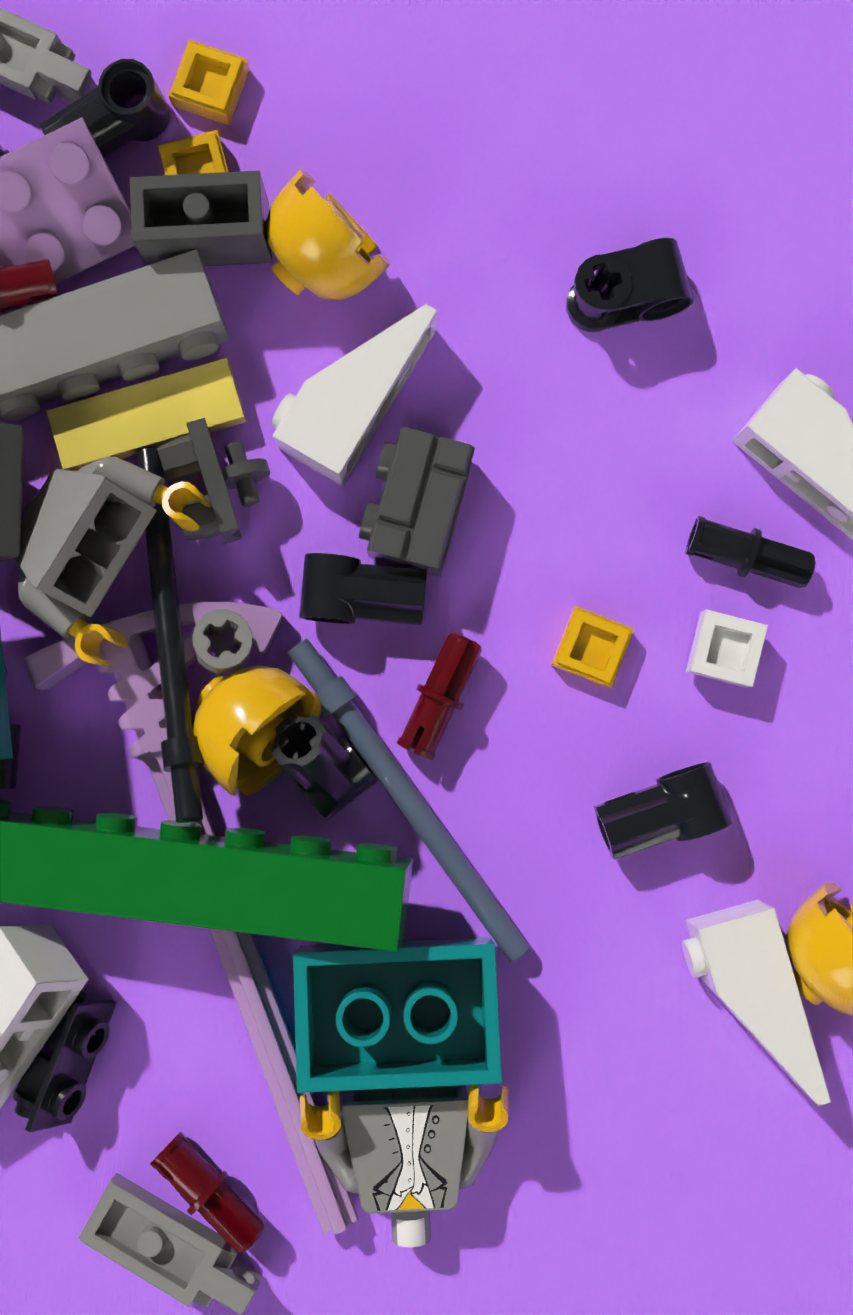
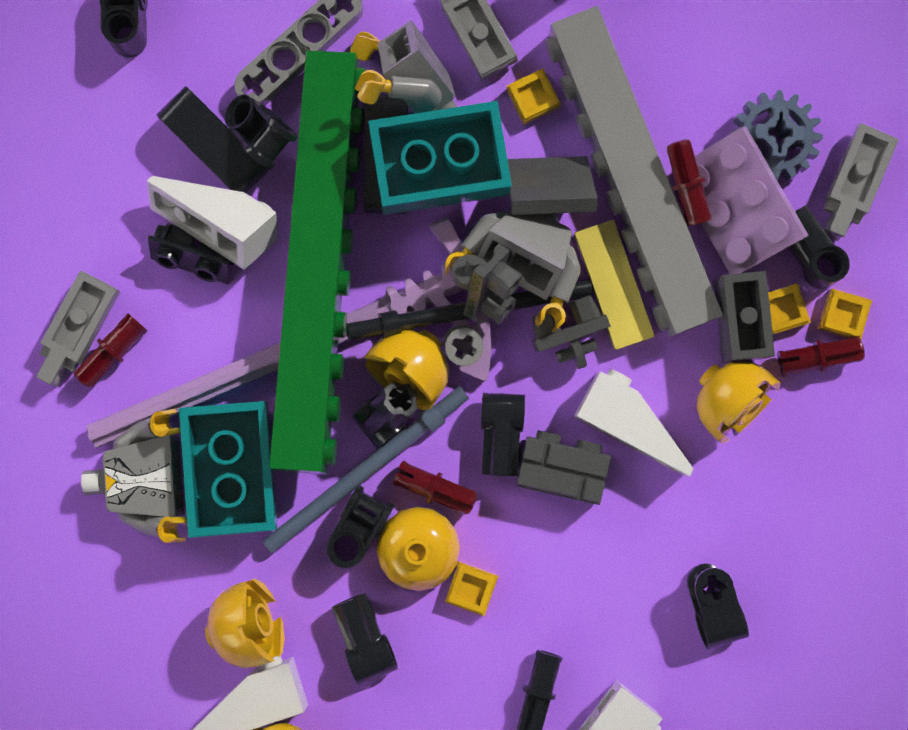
camera: 90 degrees right, 0 degrees up
(123, 595) = (488, 284): none -> dark grey hips
(268, 116) = (821, 356): none -> dark red axle
(493, 813) = (359, 525): none -> black piece
(530, 724) = (418, 548): none -> yellow cylinder
(640, 996) = (243, 627): none -> yellow cylinder
(726, 648) = (473, 678): white plate -> none

